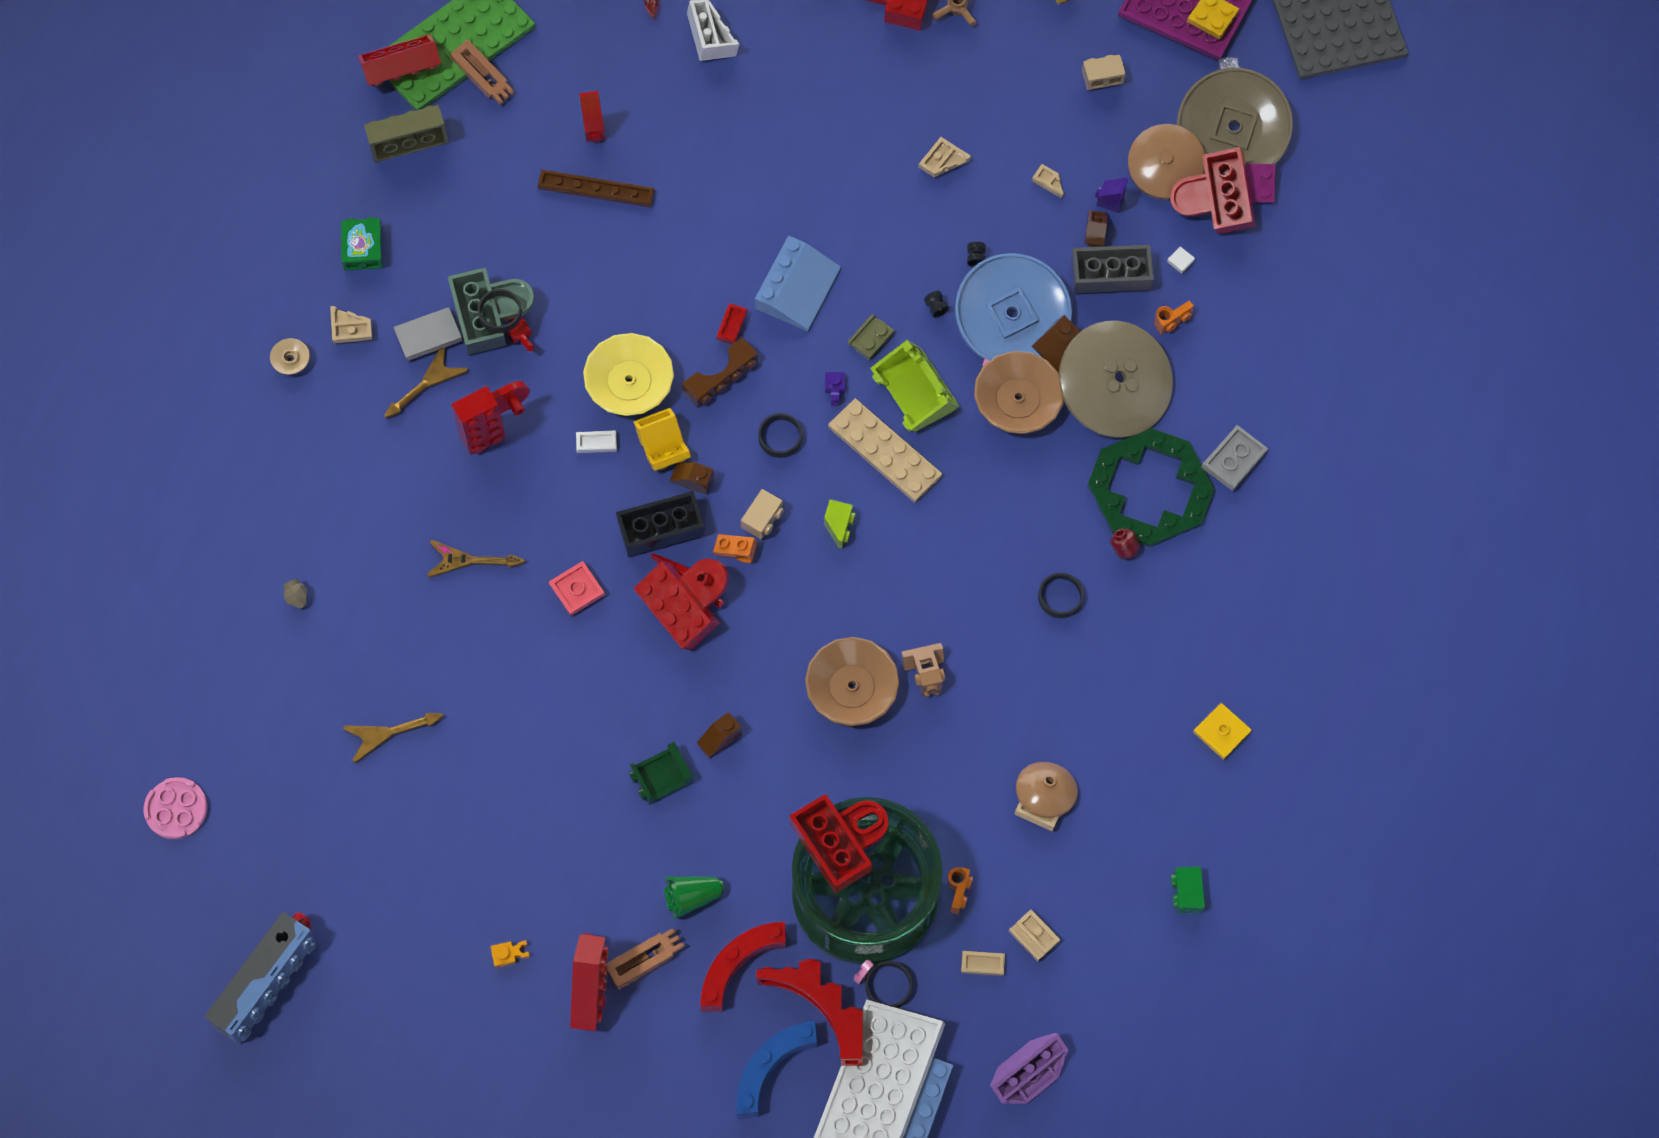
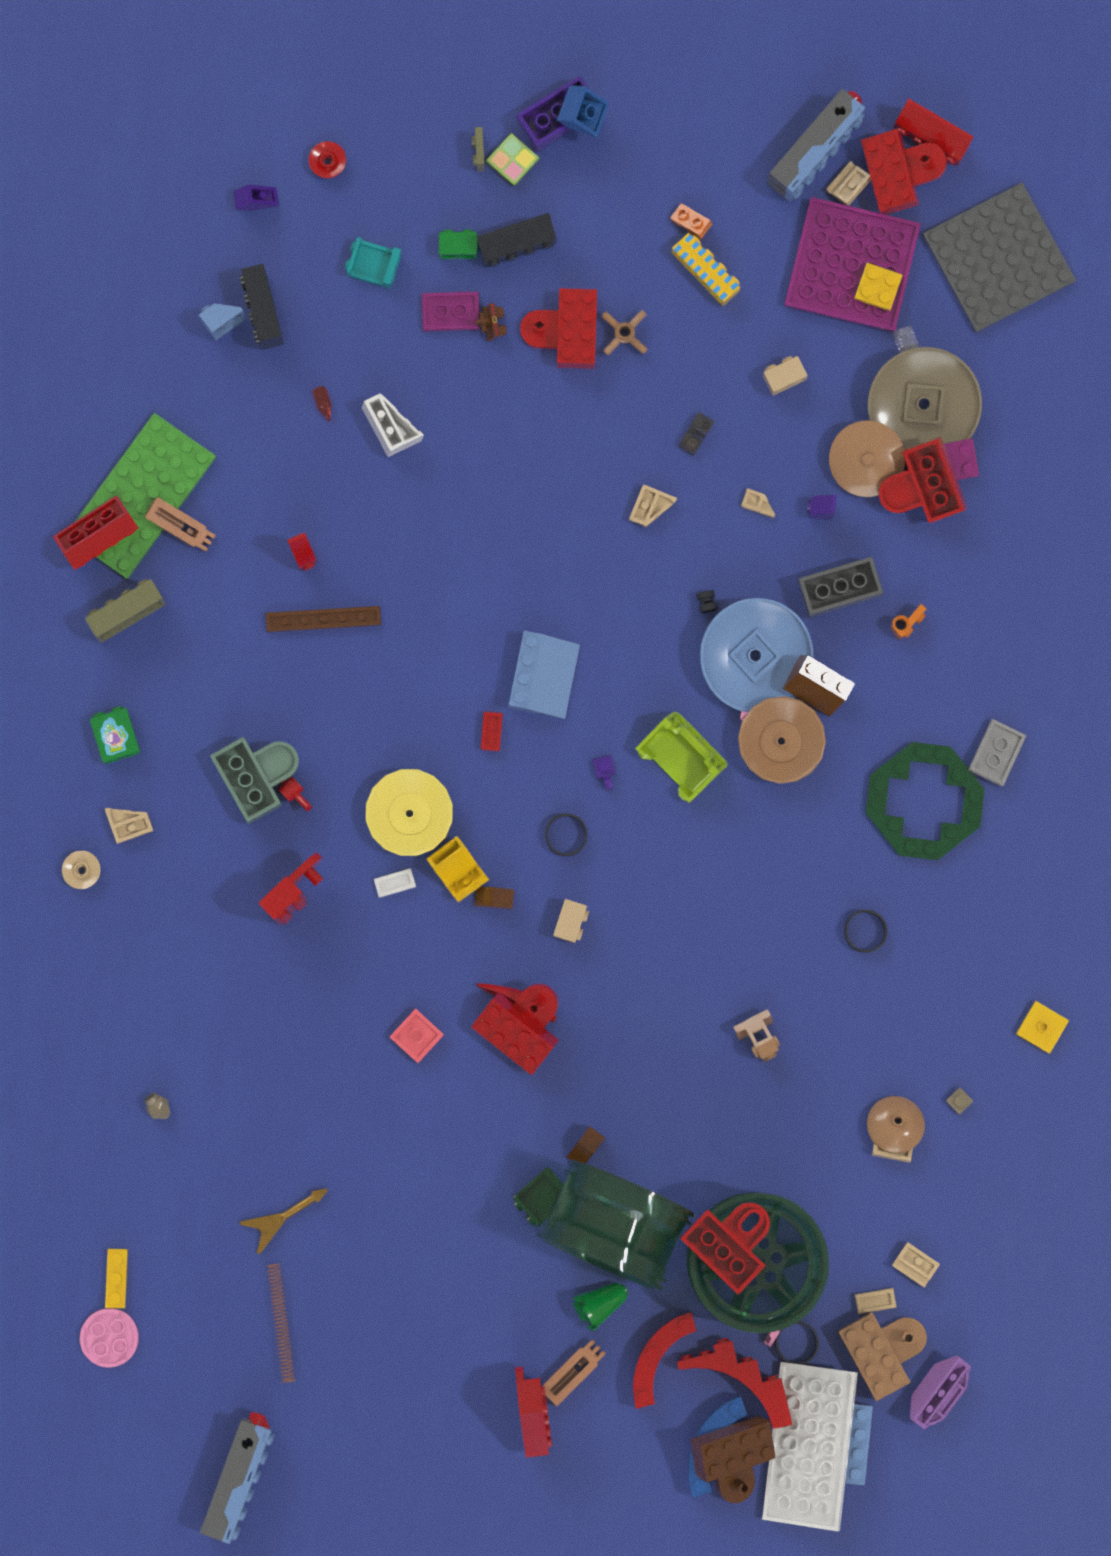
camera: 15 degrees left, 15 degrees up
(201, 751) = (116, 1278): none -> yellow plate
(351, 895) = (269, 1266): none -> piece
(427, 334) = (205, 813): light grey tile -> none
(436, 374) = (223, 853): pearl gold piece -> none
(456, 559) = (297, 1033): pearl gold piece -> none
(494, 293) = (264, 762): black tyre -> none
(505, 953) = (447, 1399): light orange plate -> none
(660, 523) = (478, 954): black brick -> none
(702, 387) = (479, 805): reddish brown arch -> none
(725, 800) = (615, 1225): none -> clear green wheel
(736, 546) = (553, 958): orange plate -> none
(788, 1079) = (730, 1455): none -> reddish brown brick
(837, 521) = (641, 909): lime slope -> none
(856, 663) = (716, 1063): medium nougat dish -> none
(871, 337) = (626, 711): olive plate -> none
(885, 450) = (668, 825): tan plate -> none
(937, 305) = (681, 663): black wheel -> none
(959, 898) = (841, 1248): orange plate -> none
(976, 1015) = (882, 1350): none -> medium nougat brick
(1004, 106) = (696, 433): none -> clear smoke slope
(1090, 382) = (845, 698): dark tan dish -> none
(1096, 228) = (814, 545): slope -> none
(1118, 783) = (959, 1101): none -> dark tan plate
(1125, 543) = (914, 867): dark red head -> none
(1180, 260) = (902, 558): white tile -> none
(1188, 890) = (1044, 1188): green brick -> none

